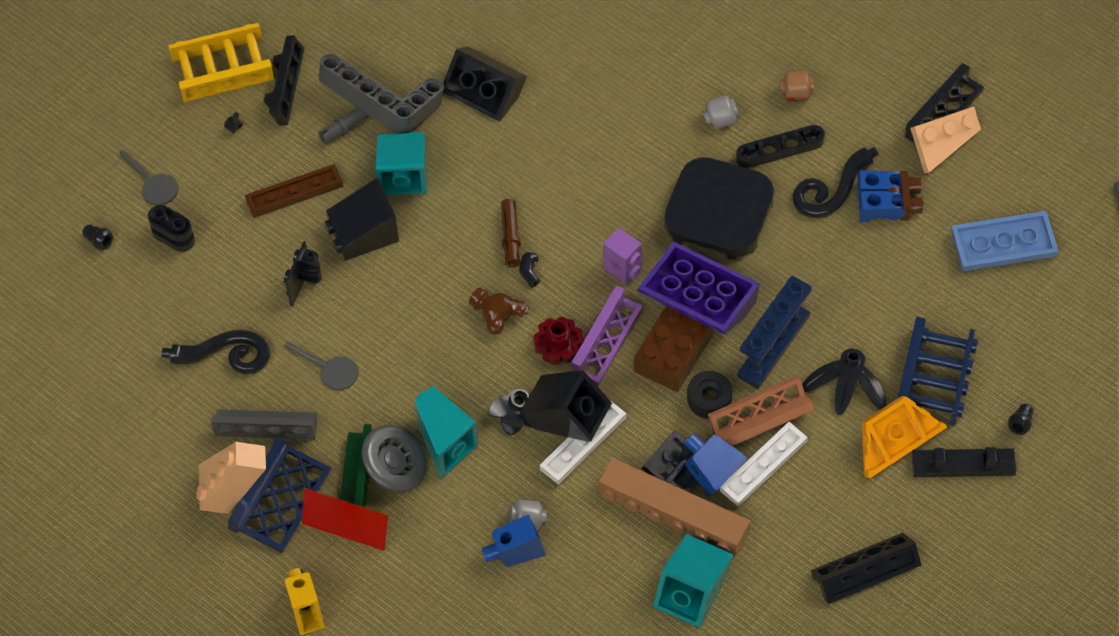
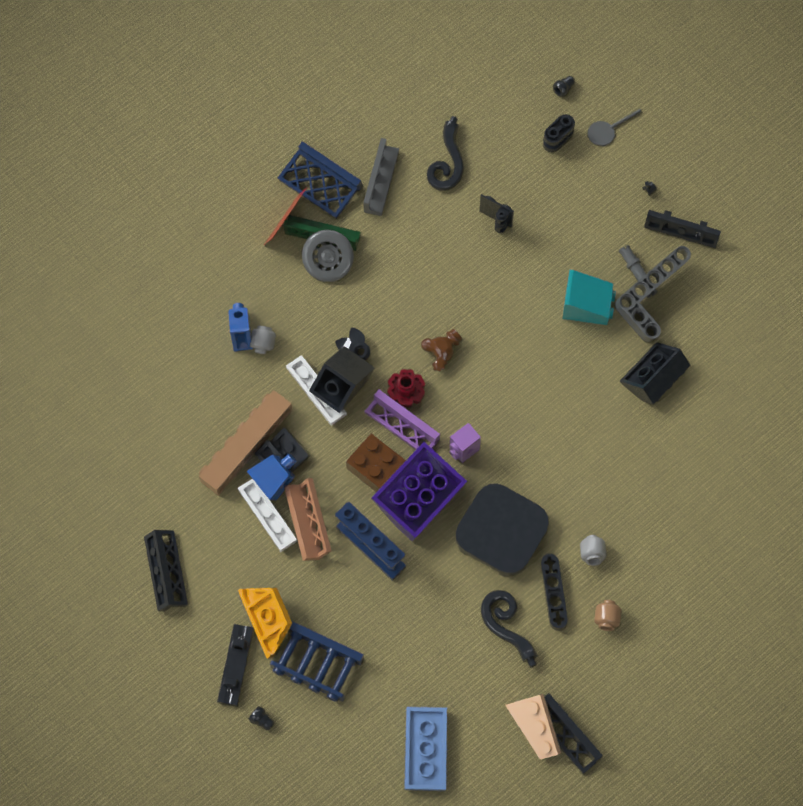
camera: 100 degrees right, 10 degrees up
(224, 80) = (693, 194): yellow fence -> none
(229, 476) = (331, 140): light nougat wedge -> none
(294, 191) = (580, 224): reddish brown tile -> none
(302, 594) = (230, 182): yellow torso -> none
(336, 373) = (415, 234): dark grey piece -> none
(362, 222) = (536, 264): black slope -> none
(445, 429) = (341, 290): teal slope -> none
(510, 240) = (509, 370): reddish brown pin -> none
(527, 263) = (475, 377): black arm -> none
(692, 580) = (184, 443): teal slope -> none
(708, 381) = (329, 478): black tyre -> none
(845, 387) = (322, 591): black plant -> none
(888, 195) = (484, 670): blue hips -> none

